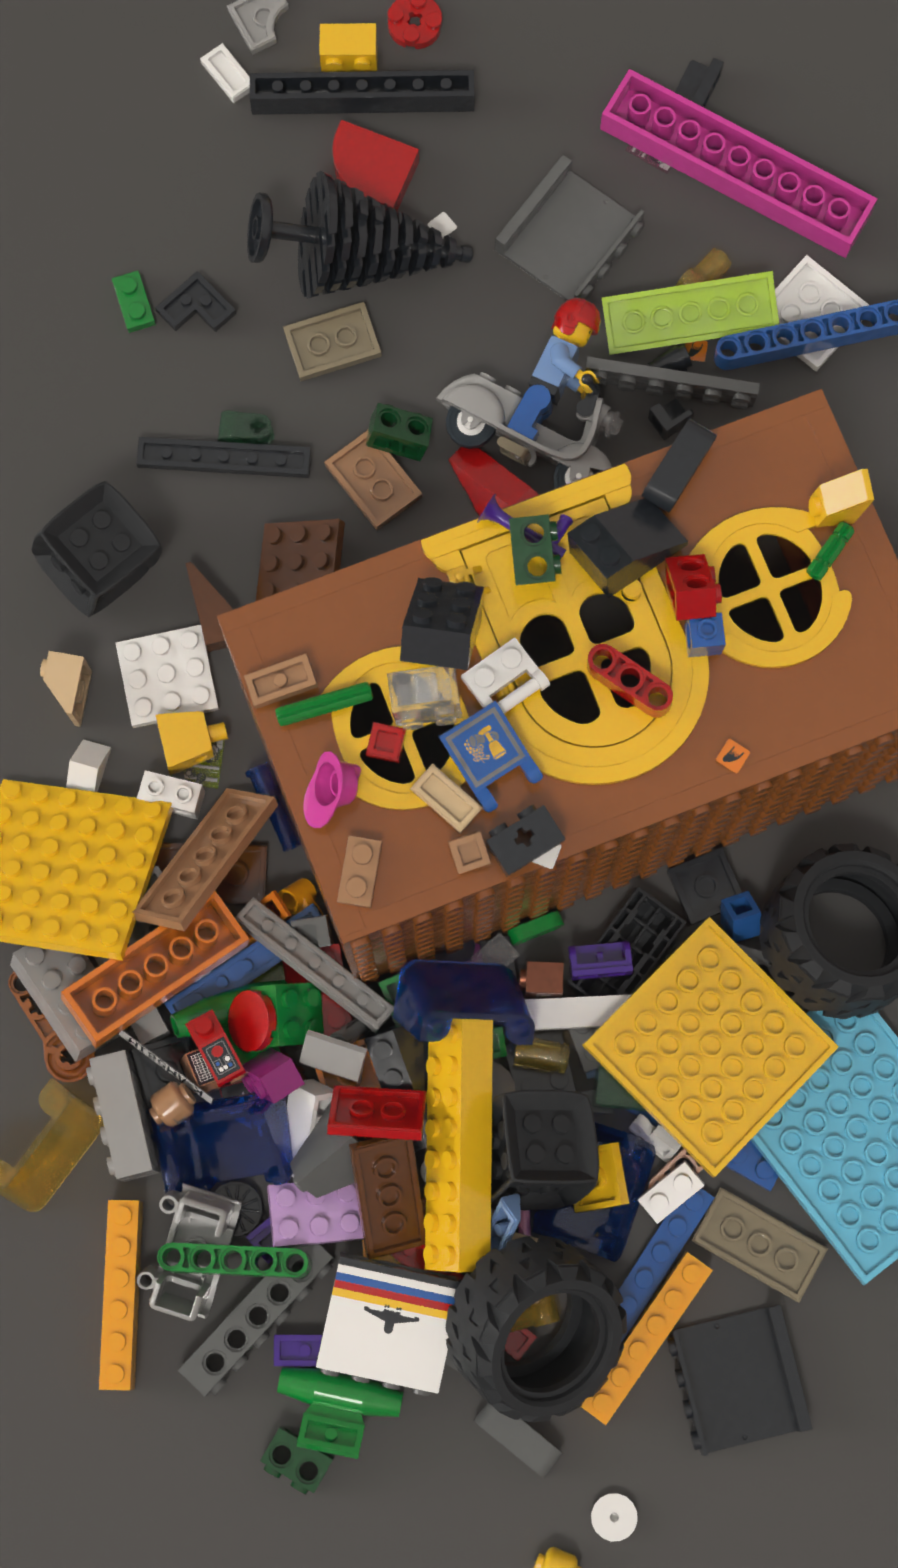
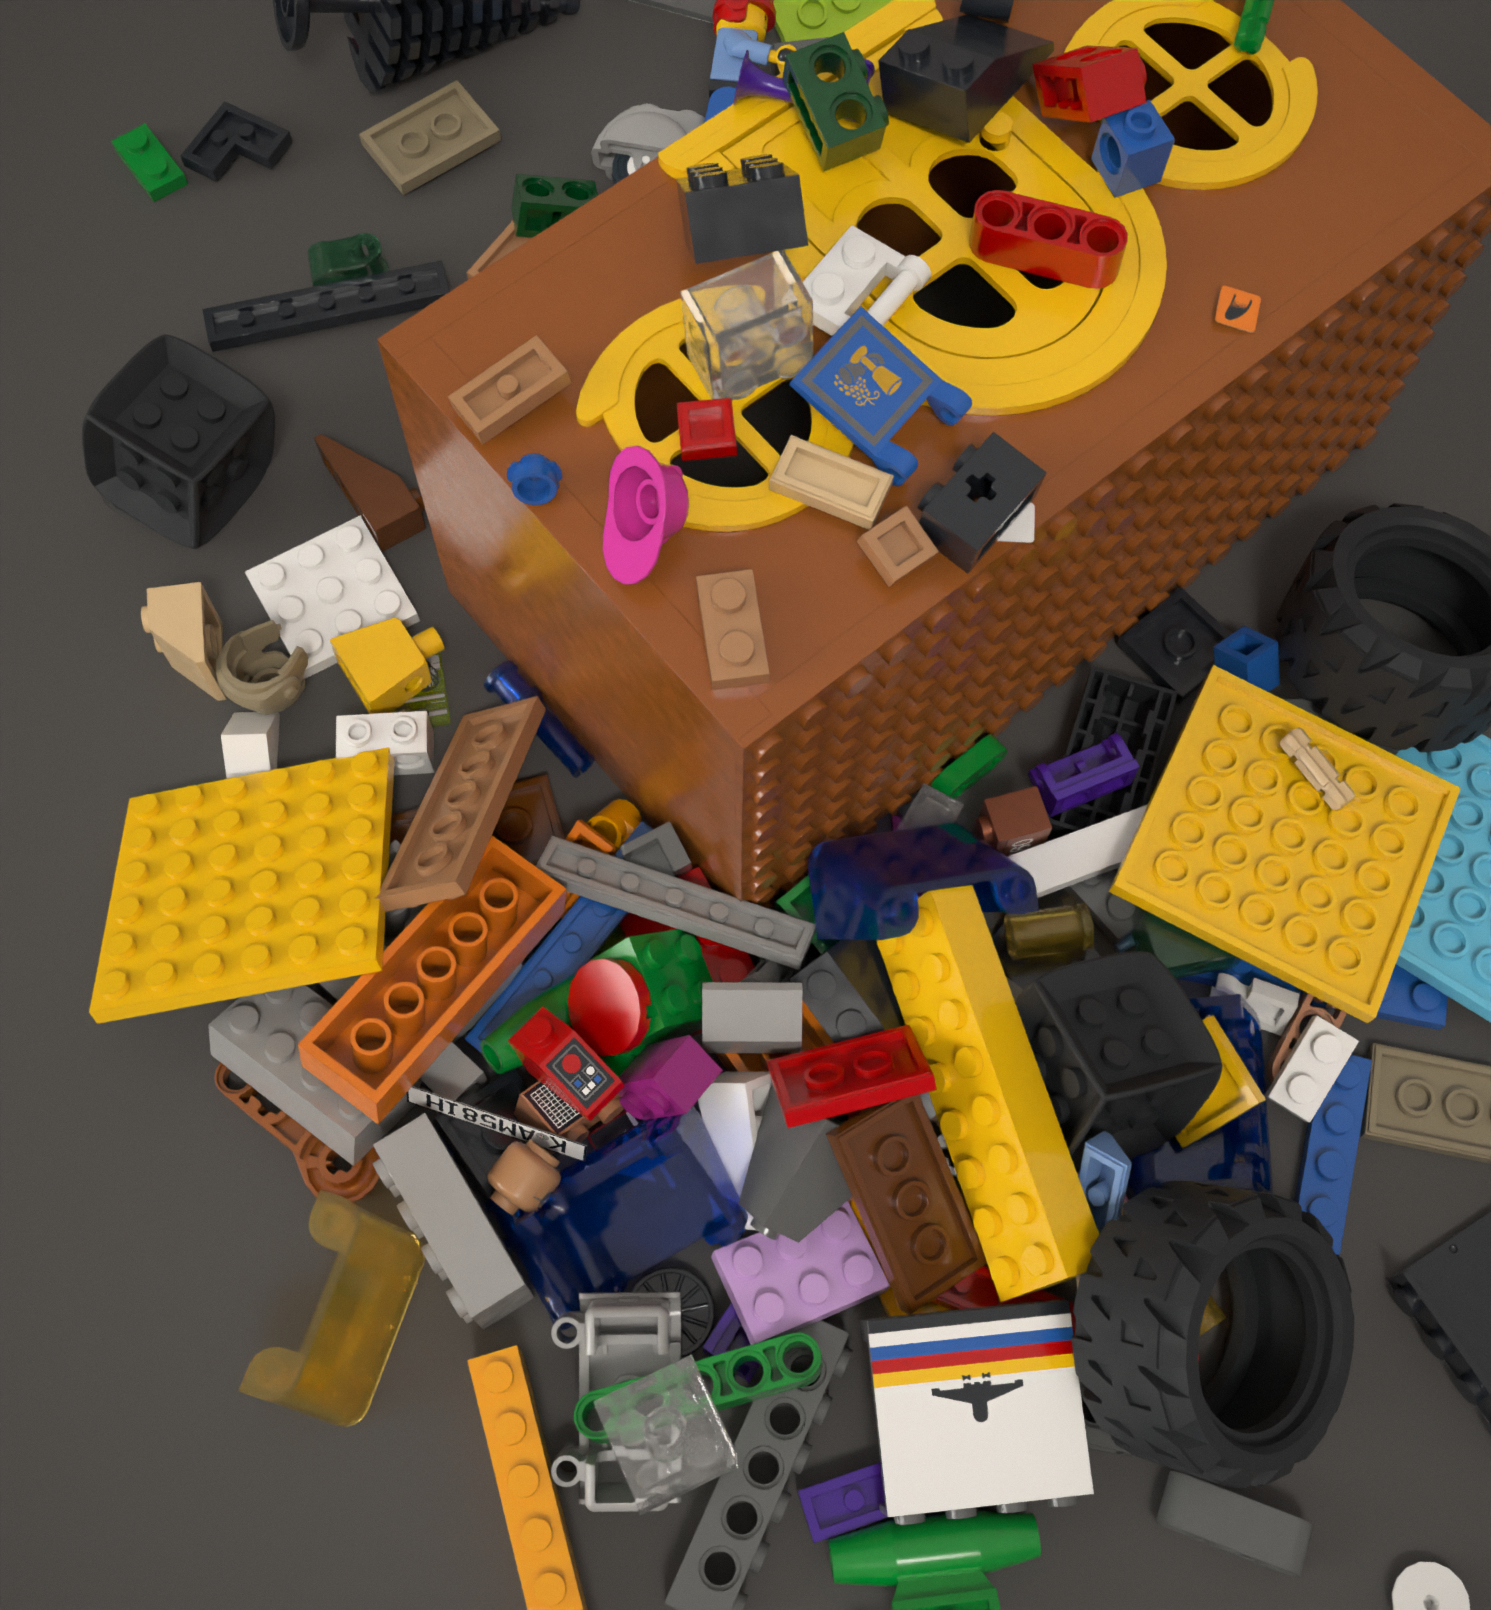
camera: 20 degrees left, 10 degrees down
(103, 724) = (258, 678): none -> dark tan helmet
(203, 1282) = (666, 1434): none -> clear brick
(278, 742) = (534, 479): none -> blue plate
(324, 704) = (588, 402): green axle -> none
(649, 1334) = (1374, 1258): light orange brick -> none
(745, 1008) = (1317, 769): none -> tan axle

